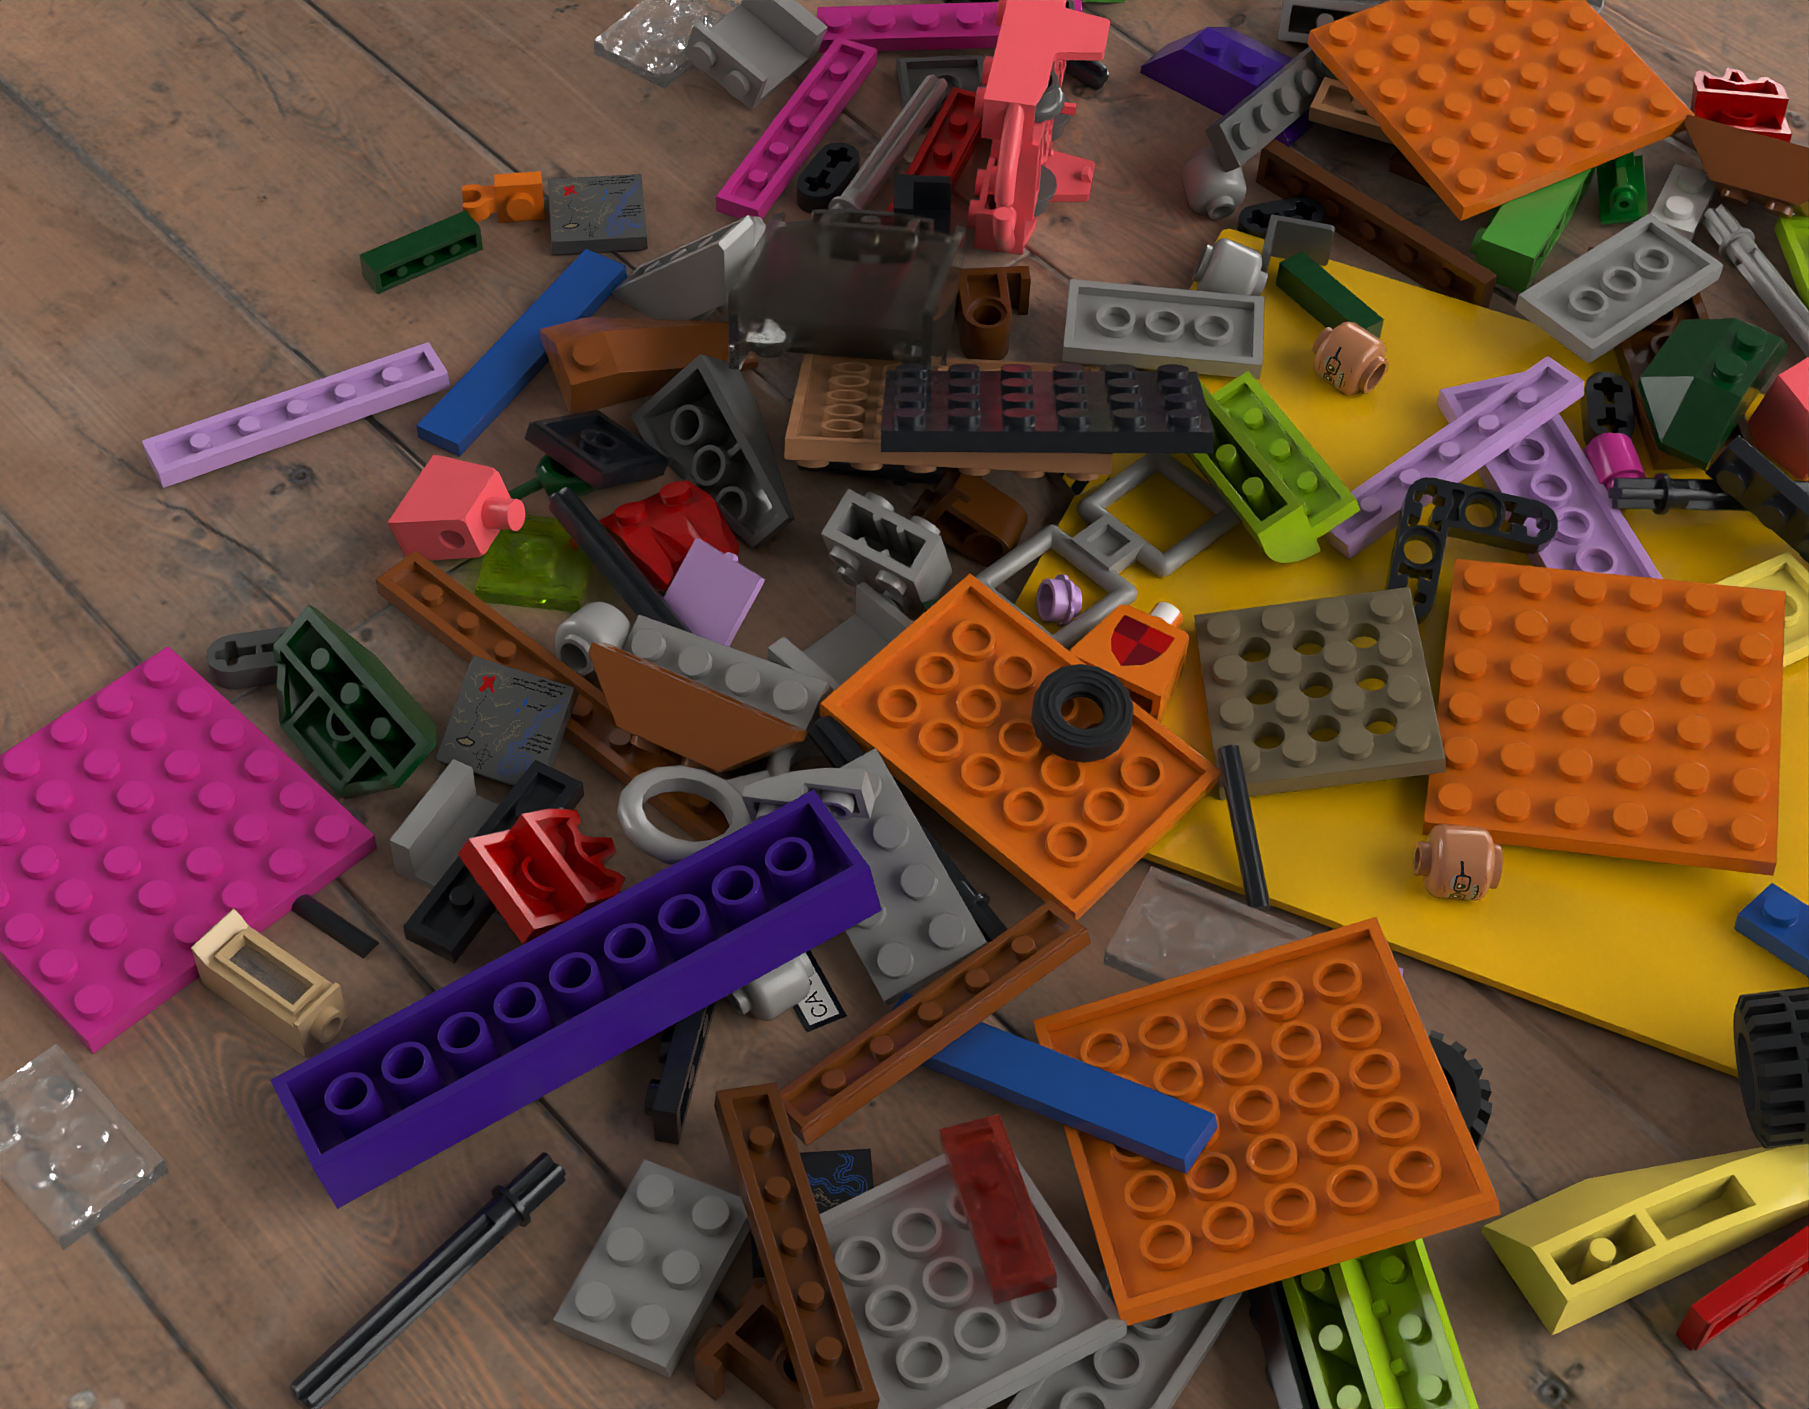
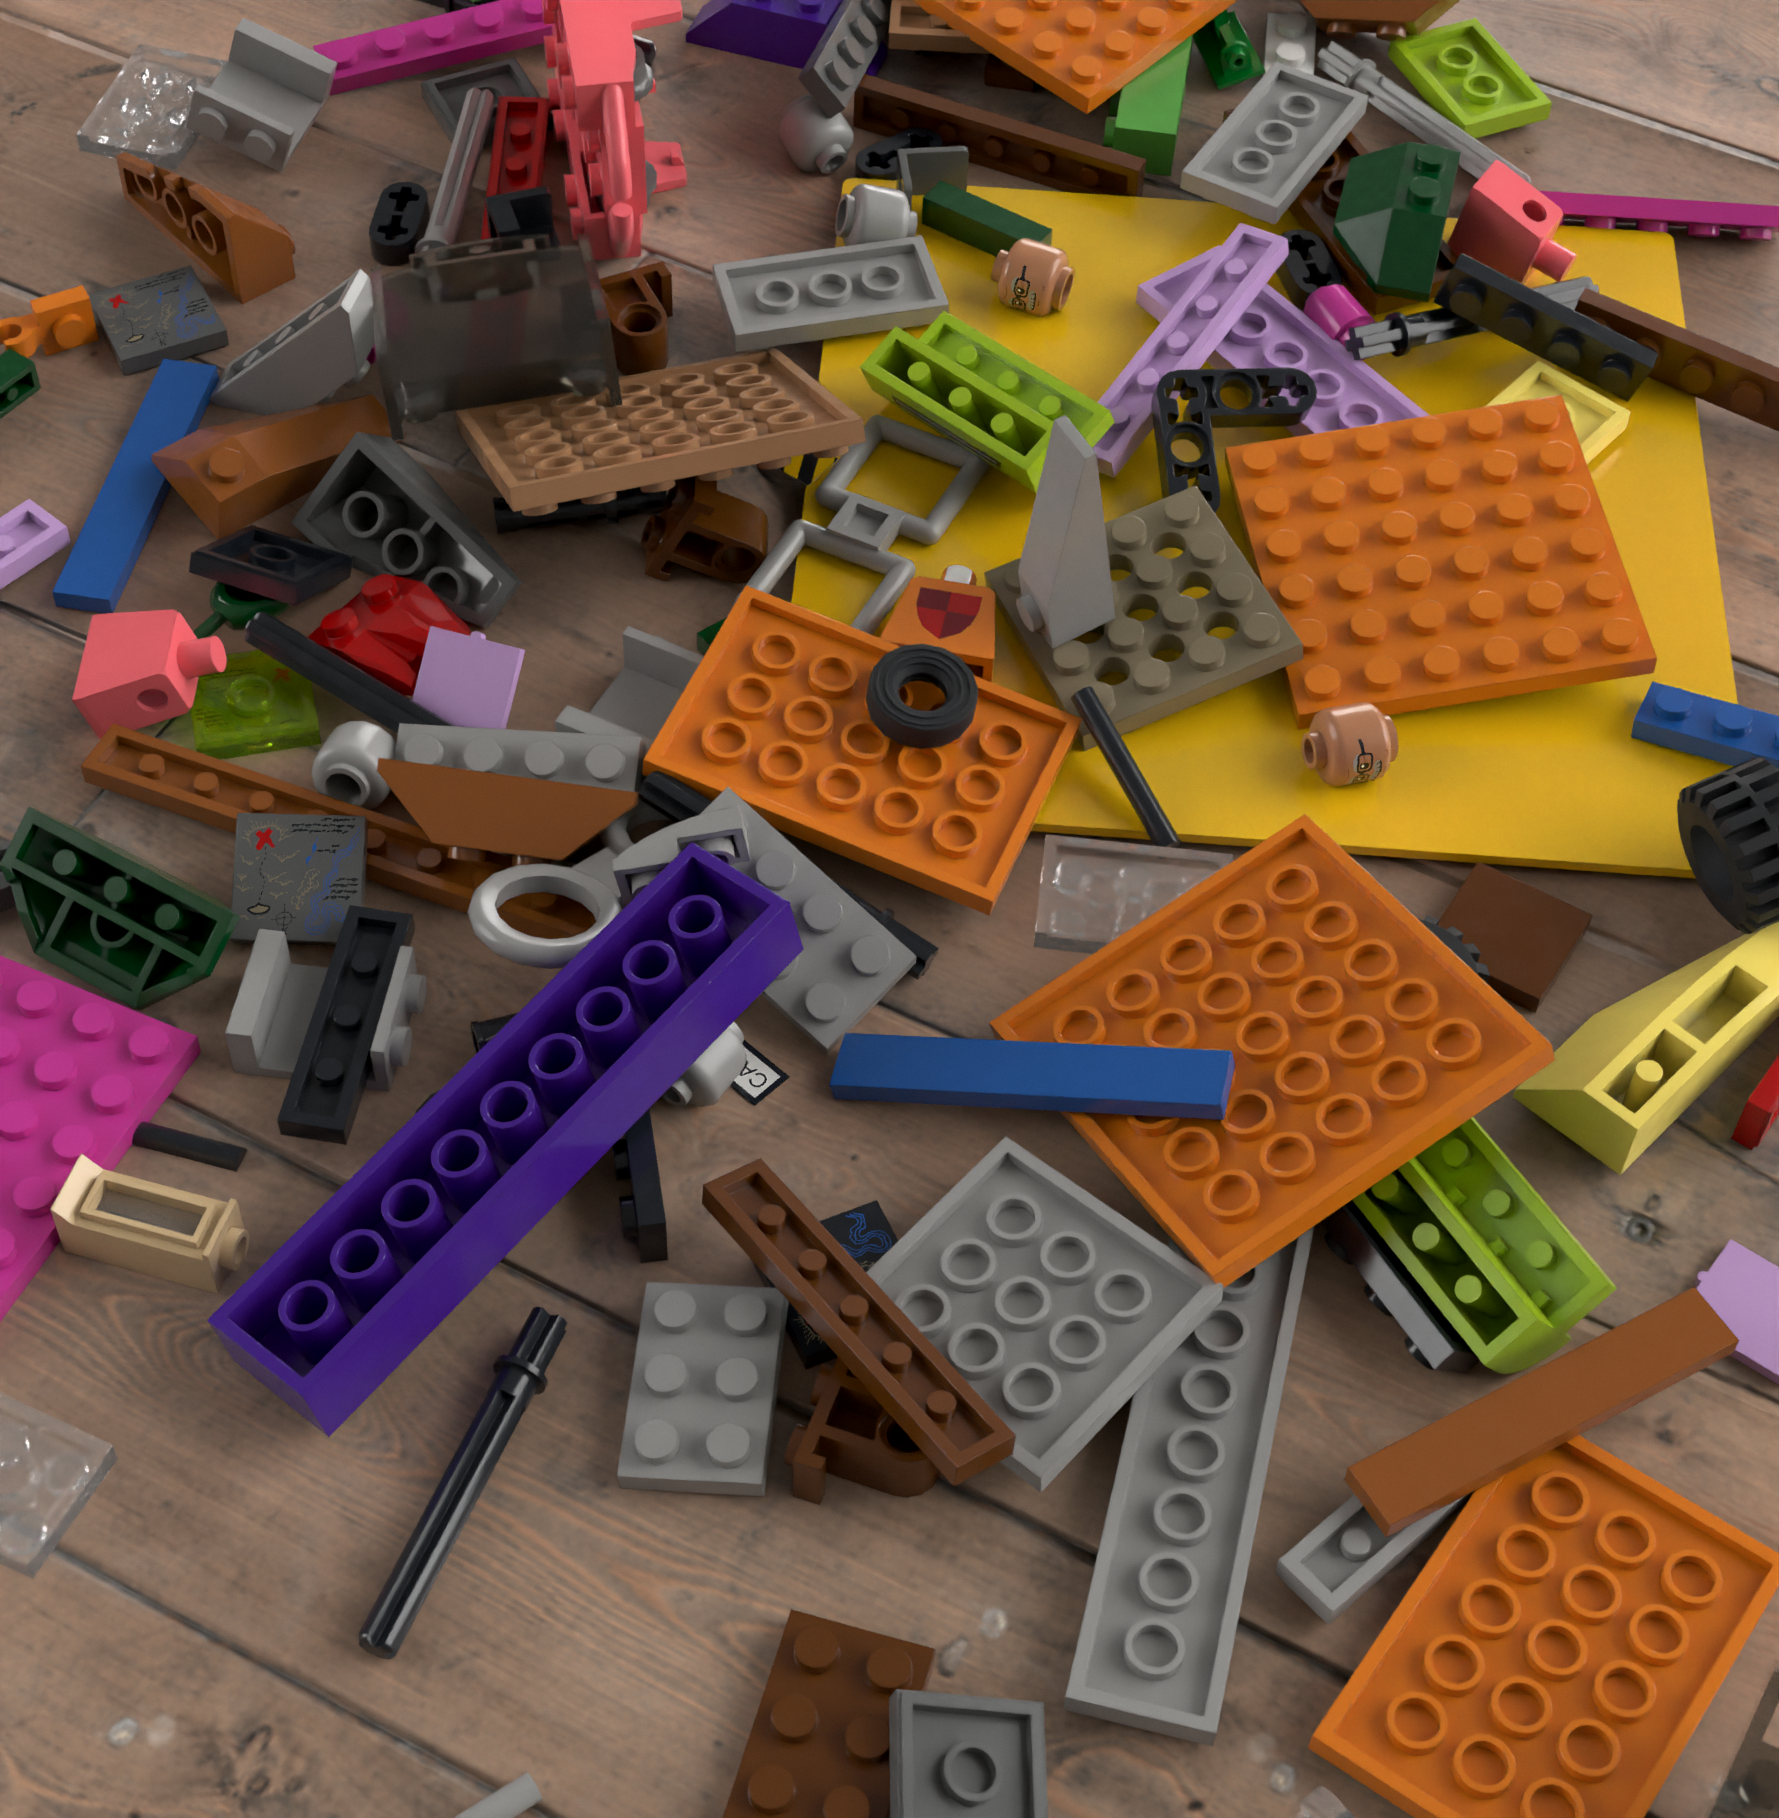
camera: 20 degrees left, 0 degrees up
(542, 870) = (416, 1016): red plate -> none
(672, 148) = (216, 231): none -> dark orange wedge
(796, 130) = (344, 181): dark pink plate -> none
(887, 550) = (642, 586): light grey brick -> none
(931, 1020) = (891, 1048): dark orange tile -> none
(998, 1209) = (1048, 1212): clear red plate -> none
(1045, 410) = (766, 394): black plate -> none
(1058, 600) = (838, 593): lavender plate -> none
(1248, 619) = (1065, 549): none -> light grey wedge
(1544, 1081) = (1518, 931): none -> reddish brown tile

